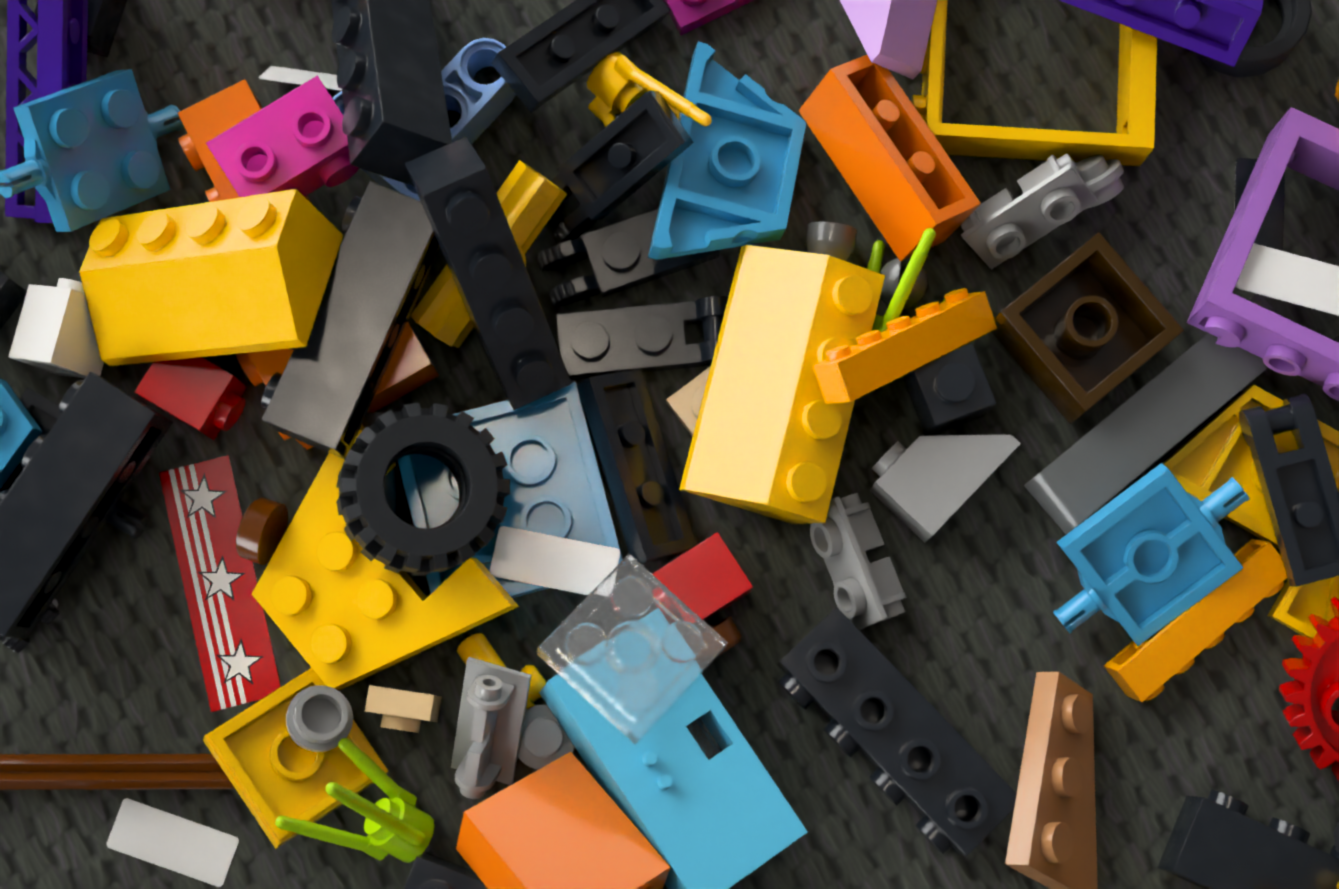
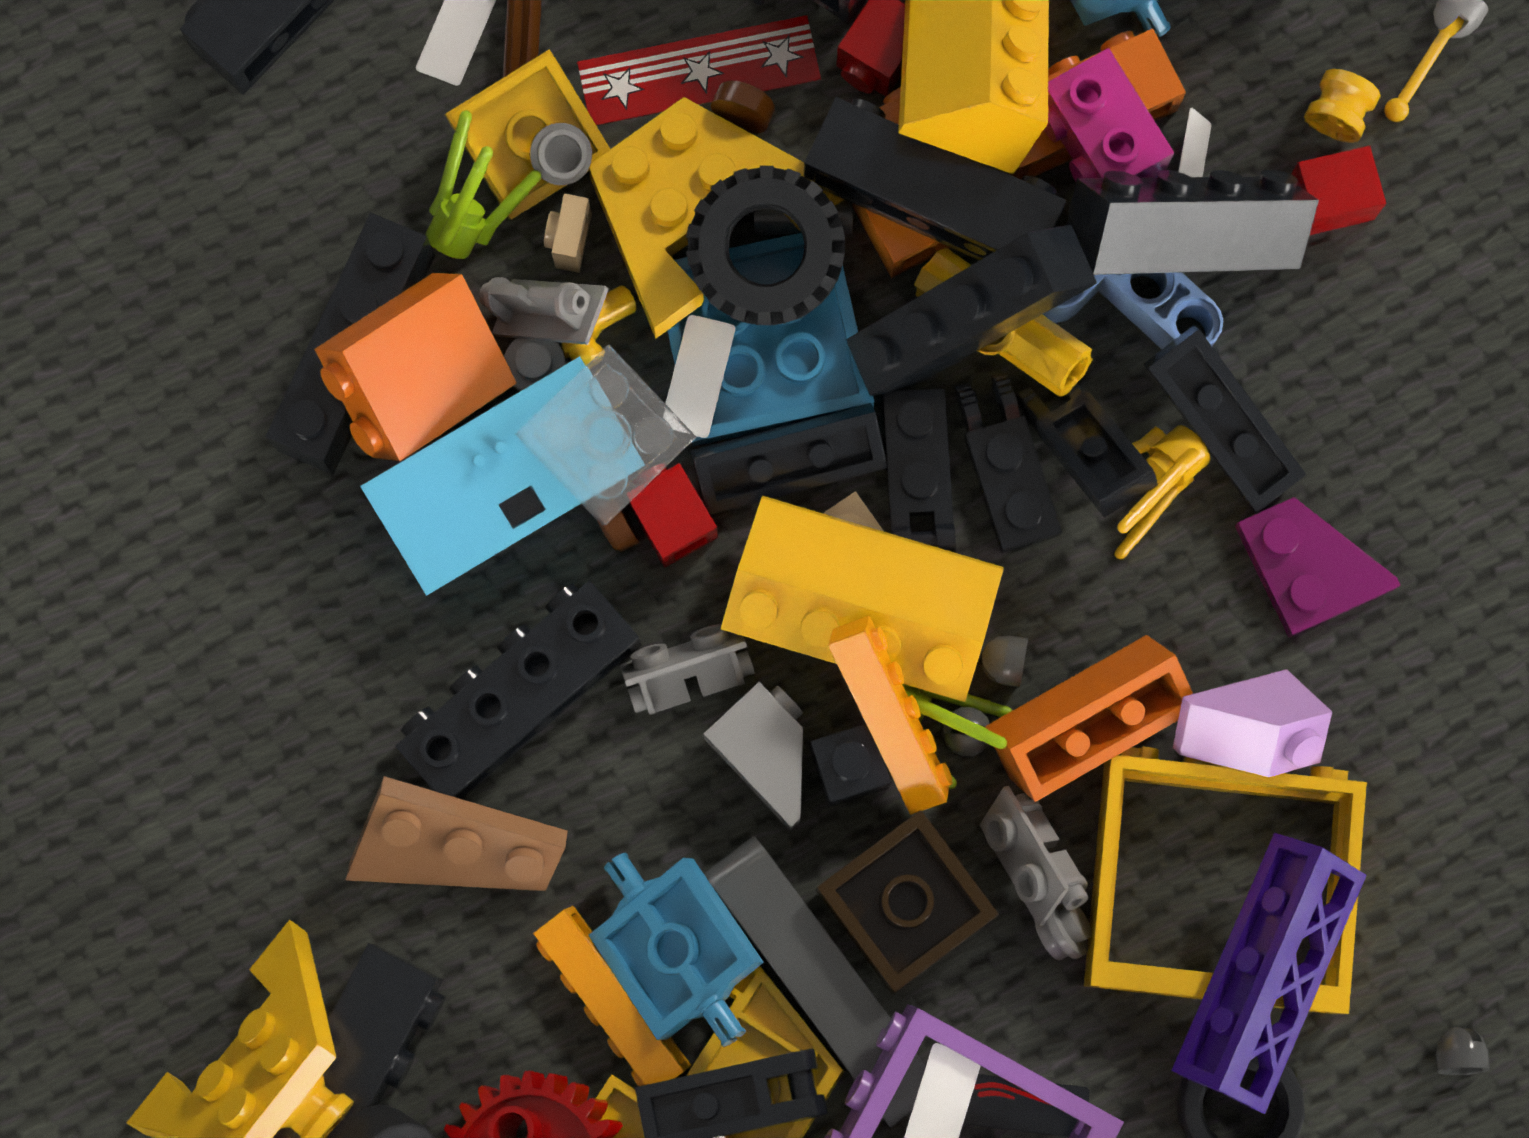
camera: 90 degrees right, 0 degrees up
(738, 172) = (1077, 565): dark azure wing -> none

